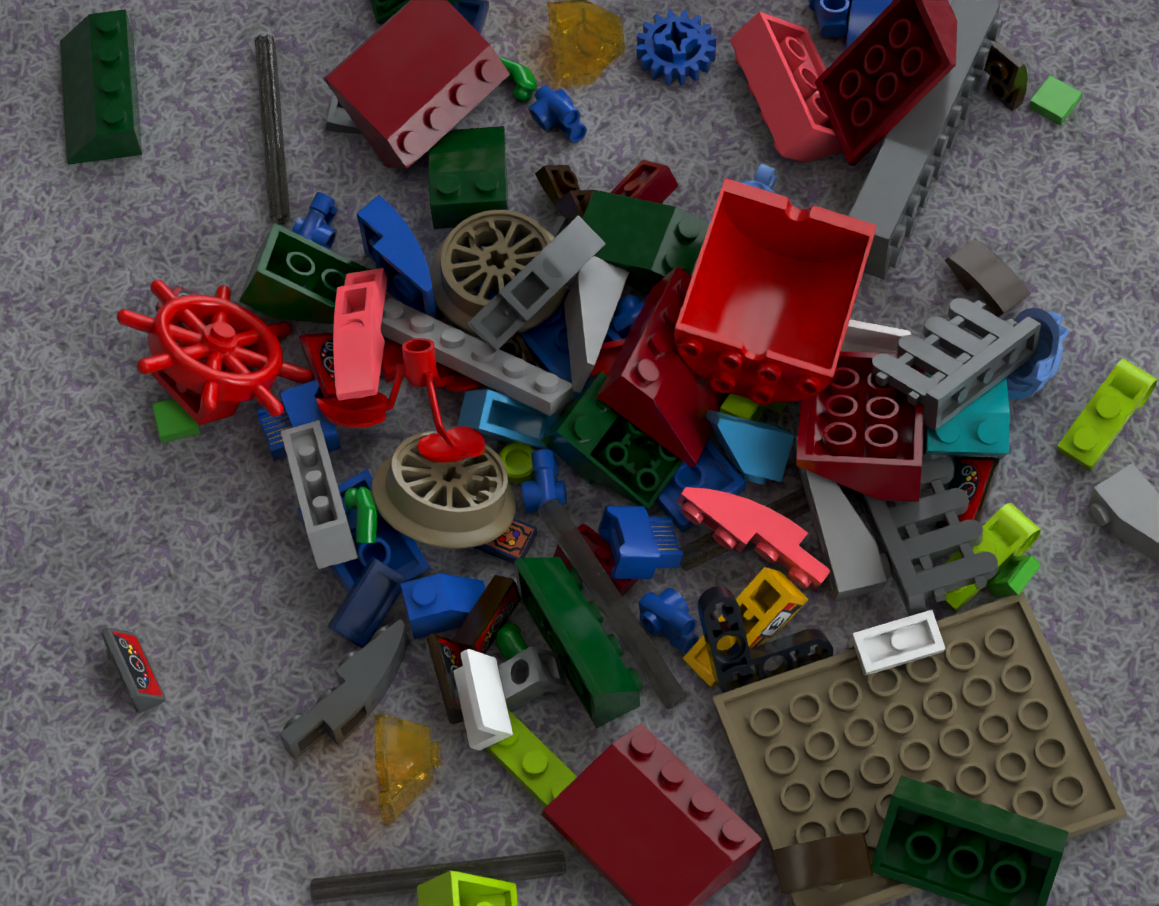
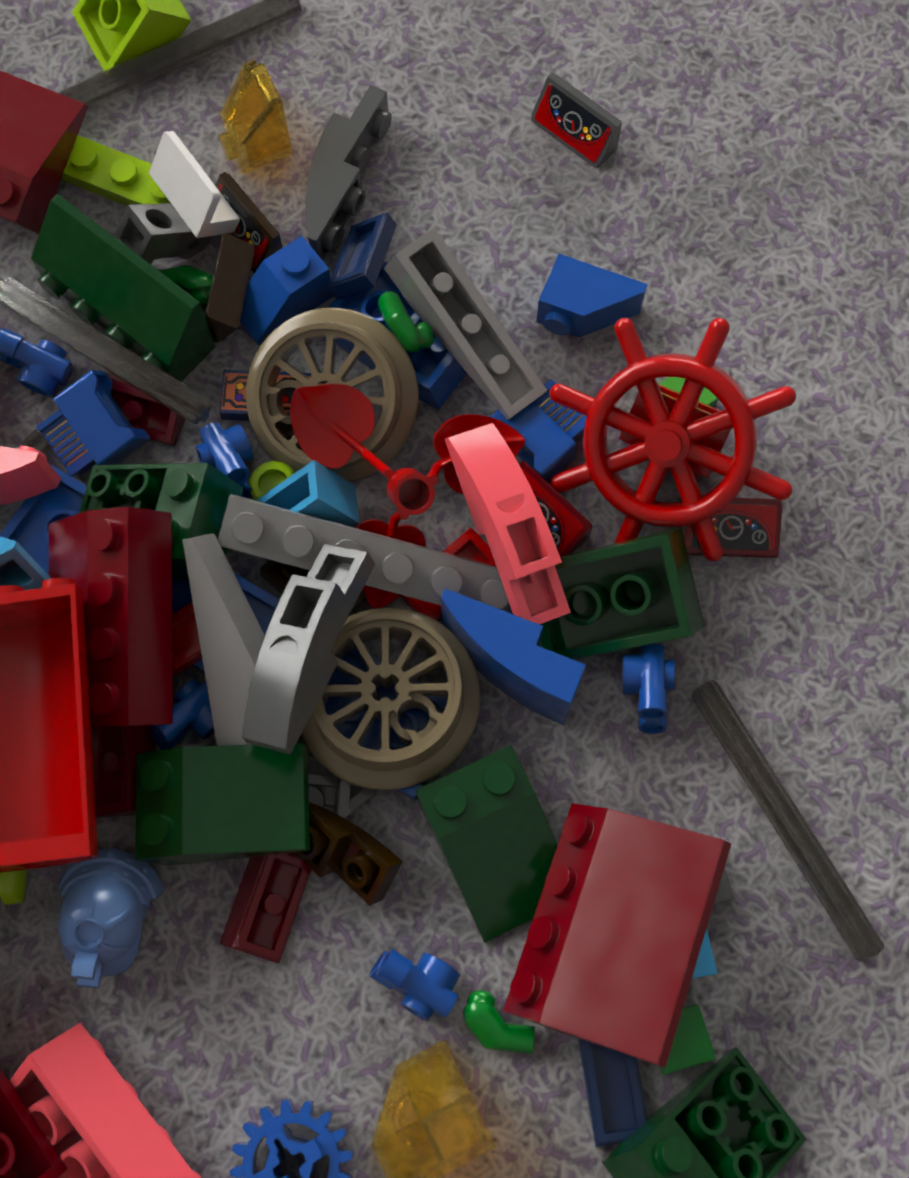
camera: 155 degrees right, 10 degrees up
(210, 509) = (586, 298): none -> blue slope

